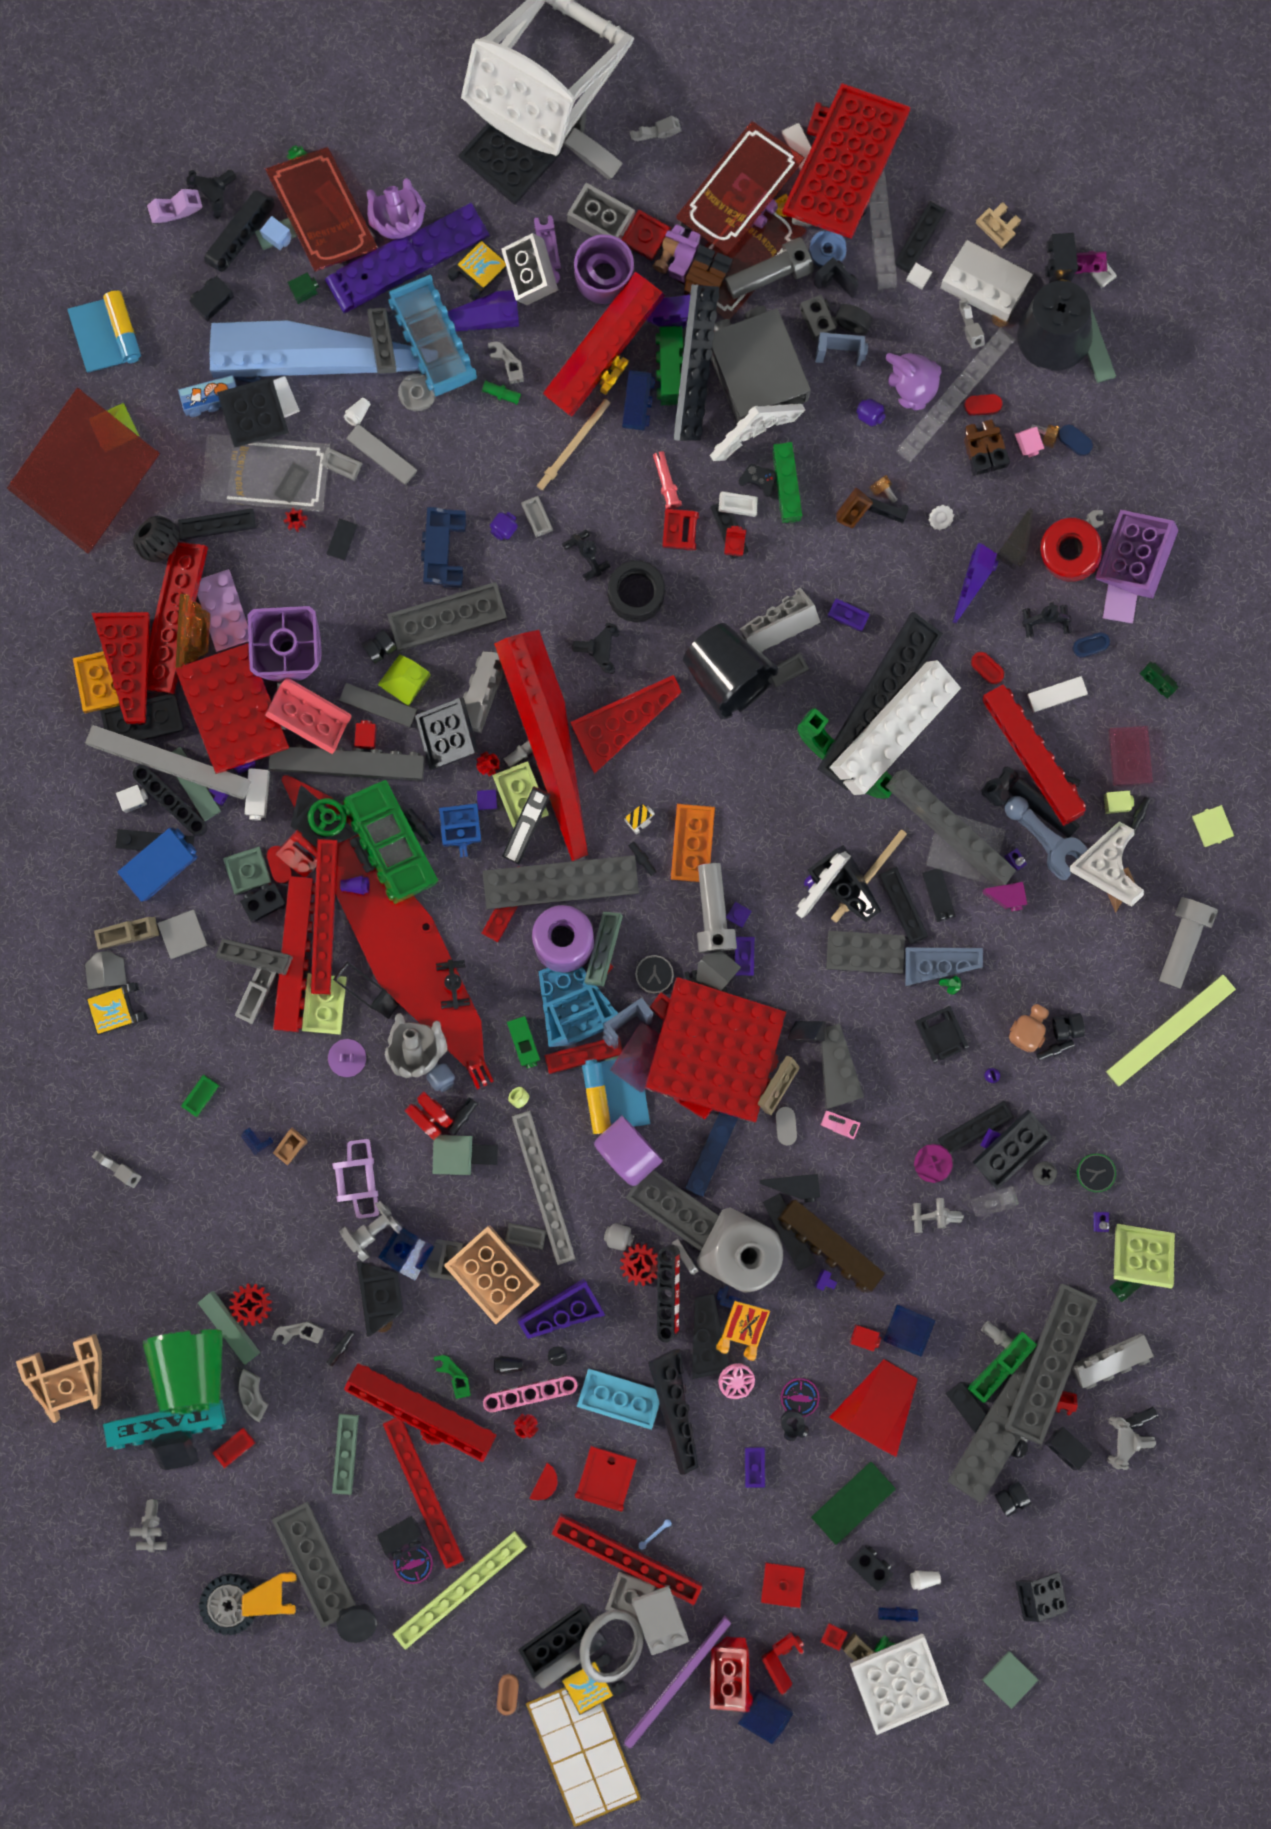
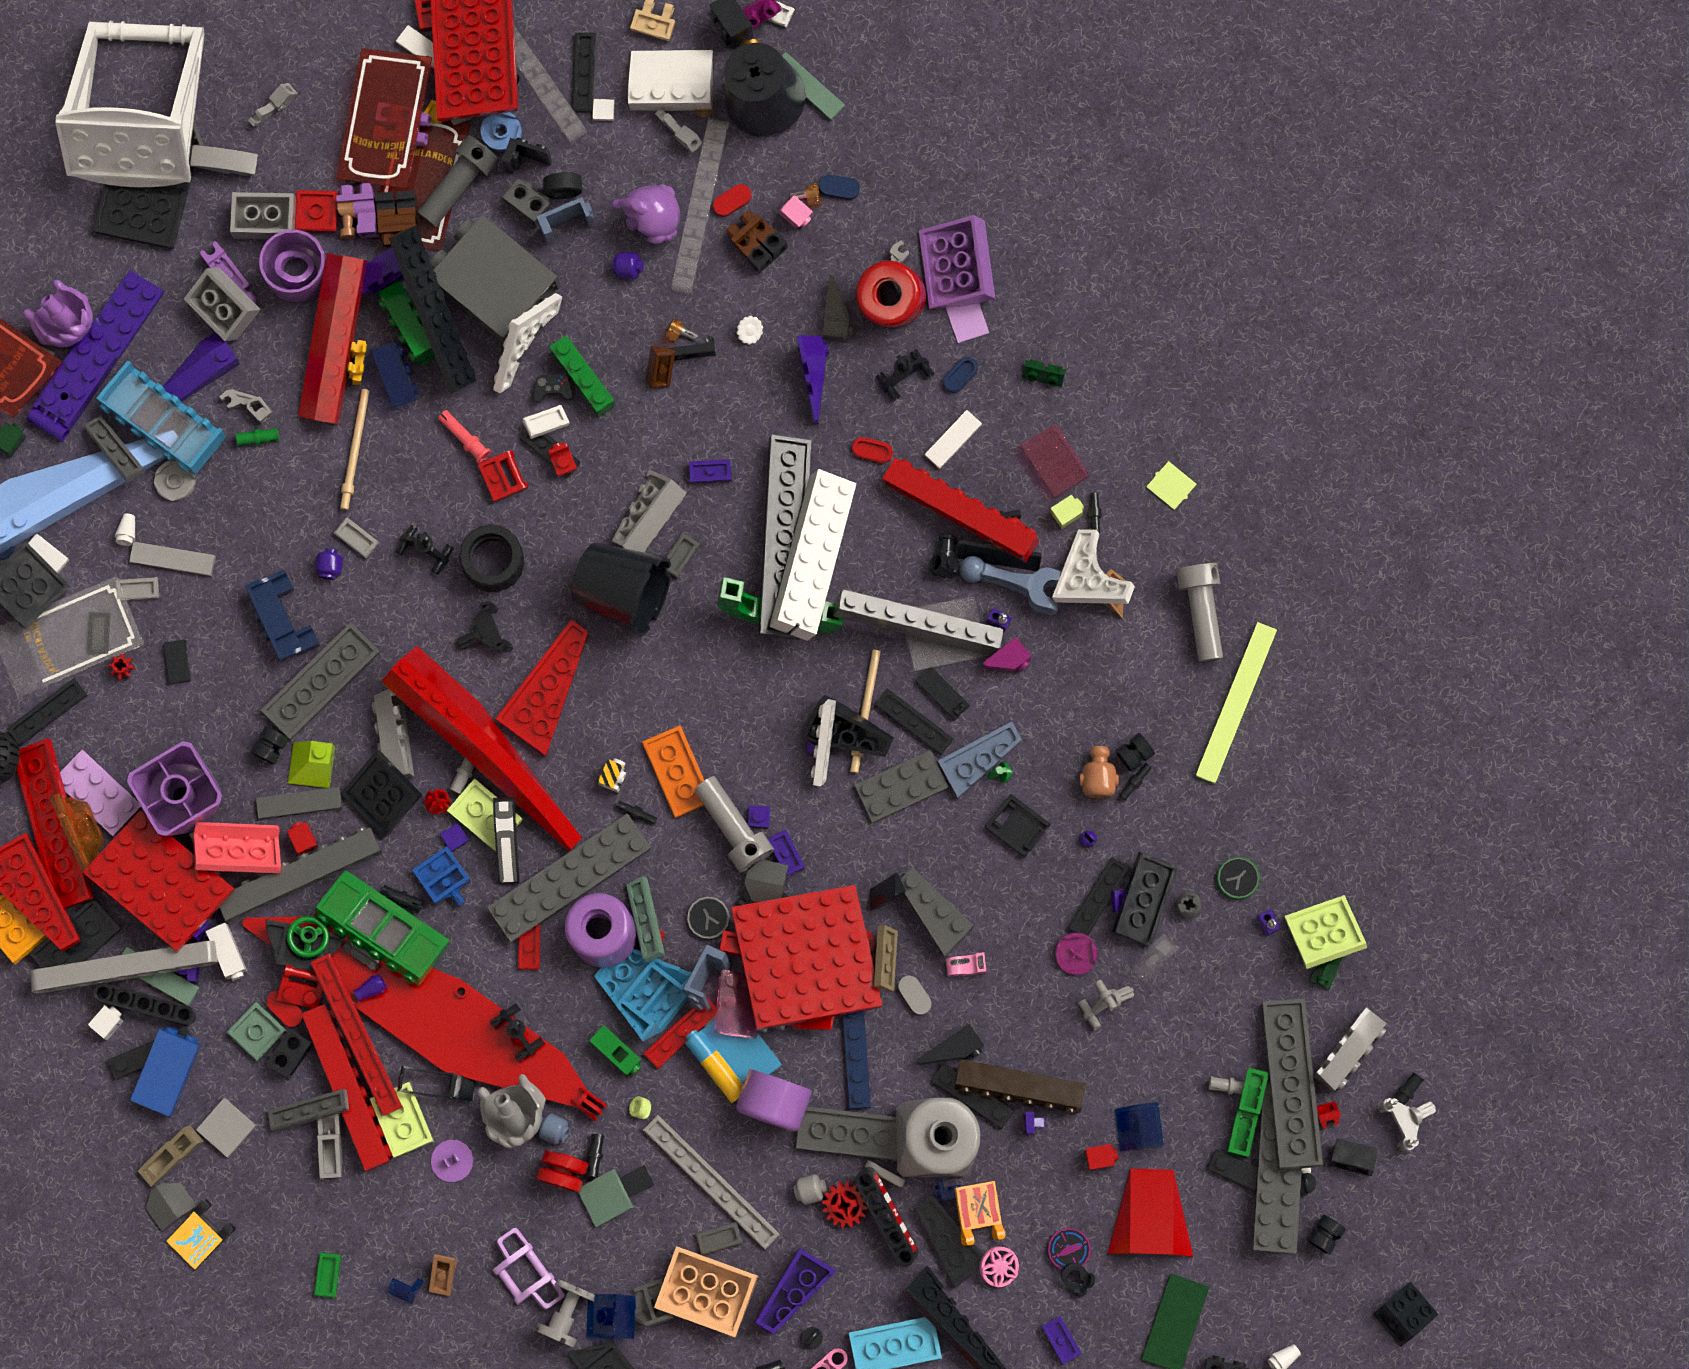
camera: 15 degrees left, 5 degrees down
(479, 267) = (171, 327): flag -> none

